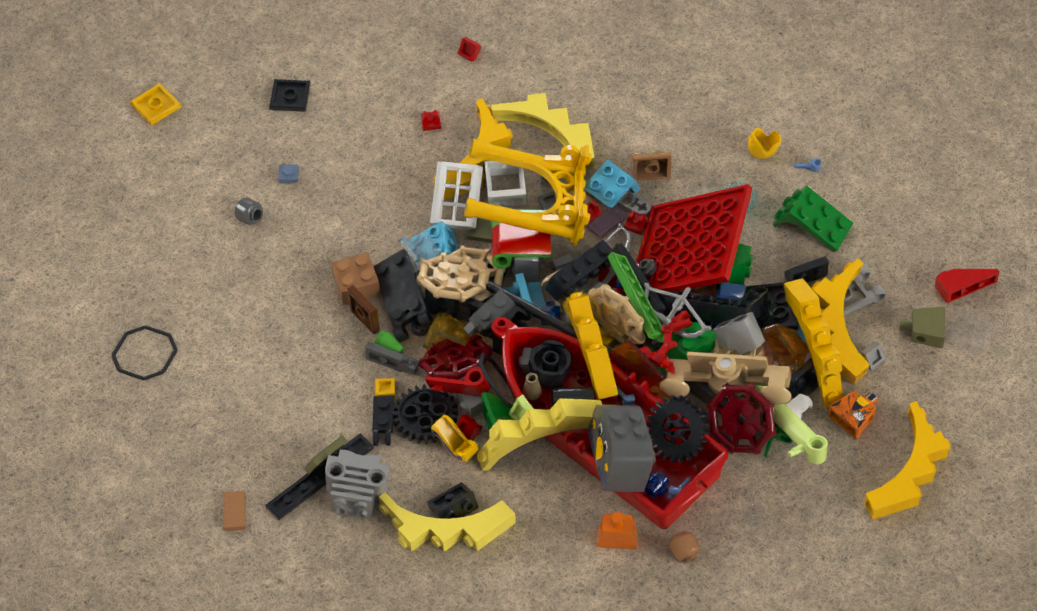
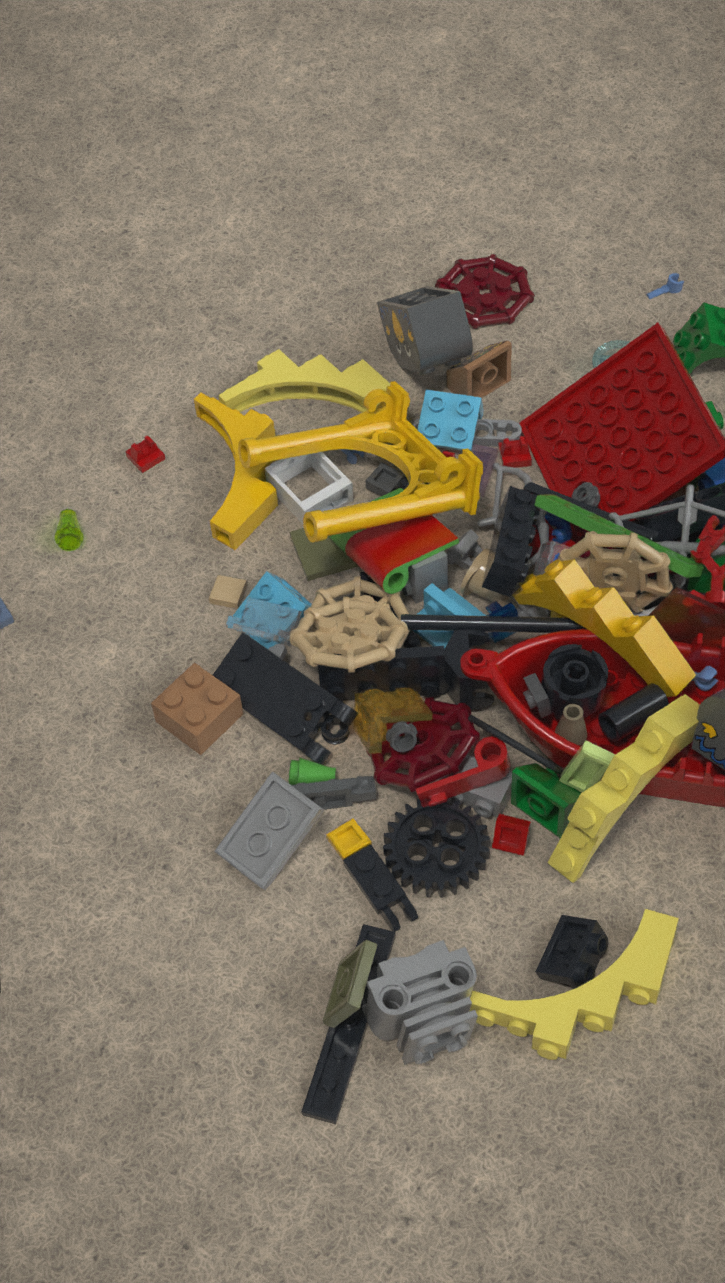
camera: 30 degrees left, 0 degrees up
(234, 511) = (260, 1148): medium nougat tile -> none
(345, 360) = (269, 831): none -> light grey tile
(358, 145) = (68, 531): none -> clear neon green cone
(363, 309) = (245, 744): reddish brown tile -> none
(418, 222) = (228, 591): none -> tan tile
(439, 189) = (236, 541): white piece -> none
(442, 350) = (405, 742): none -> dark grey plate
(454, 439) = (510, 861): yellow animal -> none
(469, 49) = (132, 344): red tile -> none
(485, 315) = (439, 655): dark grey hinge -> none
(631, 121) = (426, 328): none -> dark grey brick
(697, 105) = (499, 289): none -> dark red plate
(761, 145) = (599, 288): yellow helmet -> none

